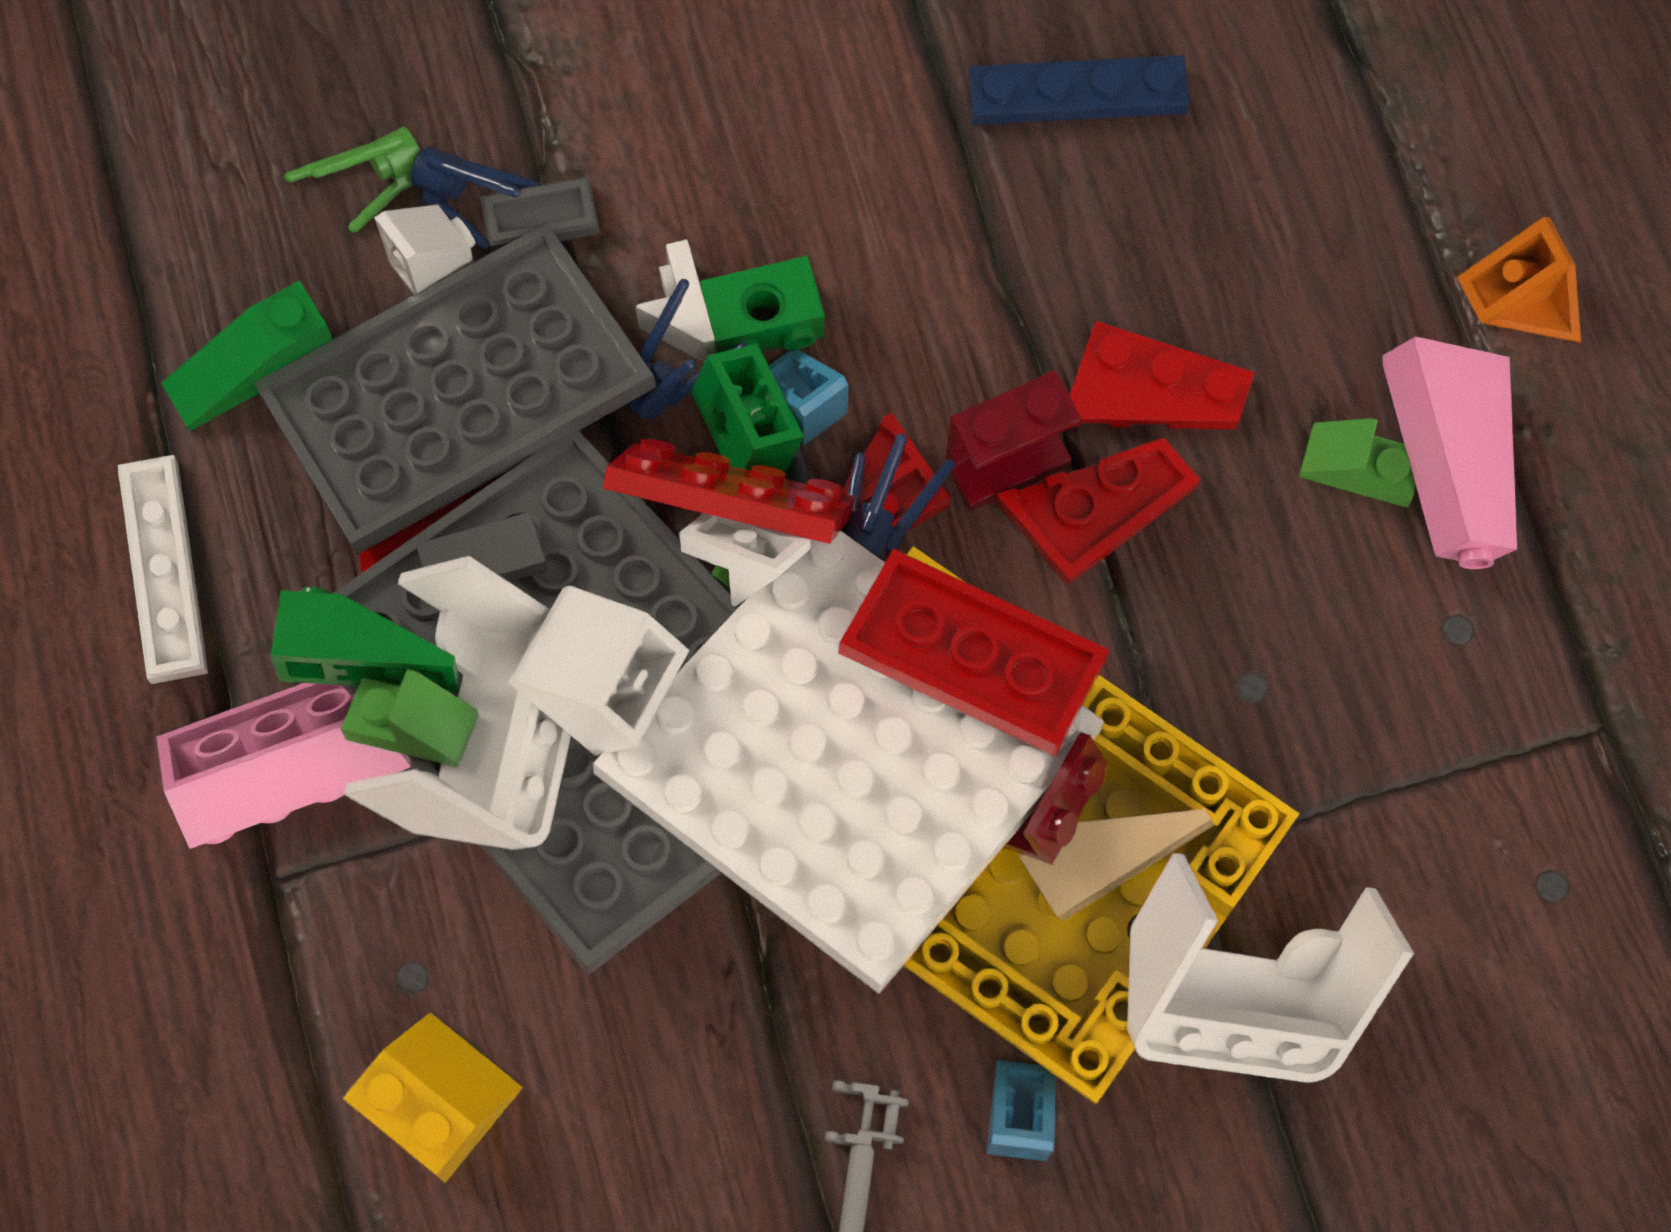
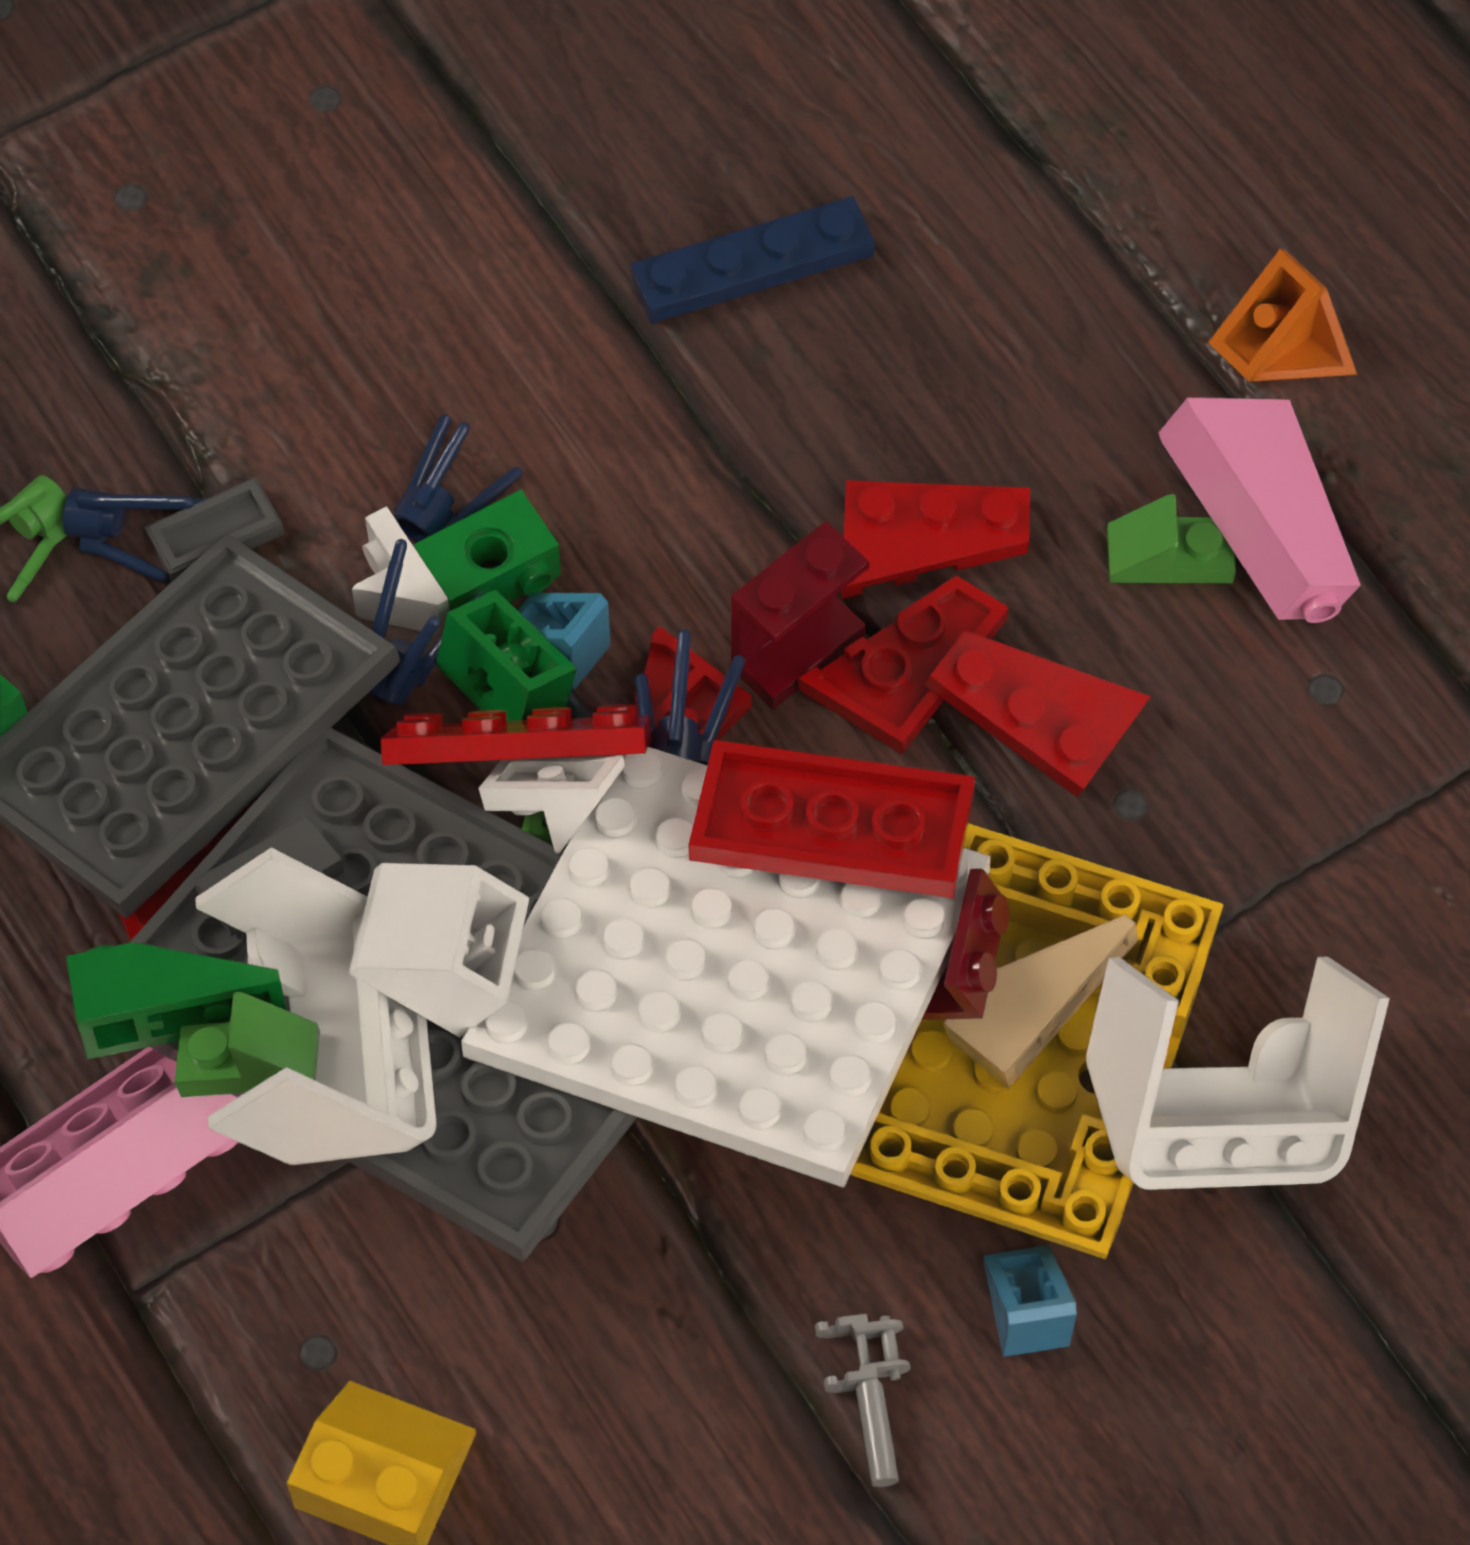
camera: 15 degrees left, 10 degrees down
(424, 244) = (100, 588): white slope -> none
(724, 245) = (426, 504): none -> dark blue plant
(1197, 579) = (1037, 707): none -> red wing

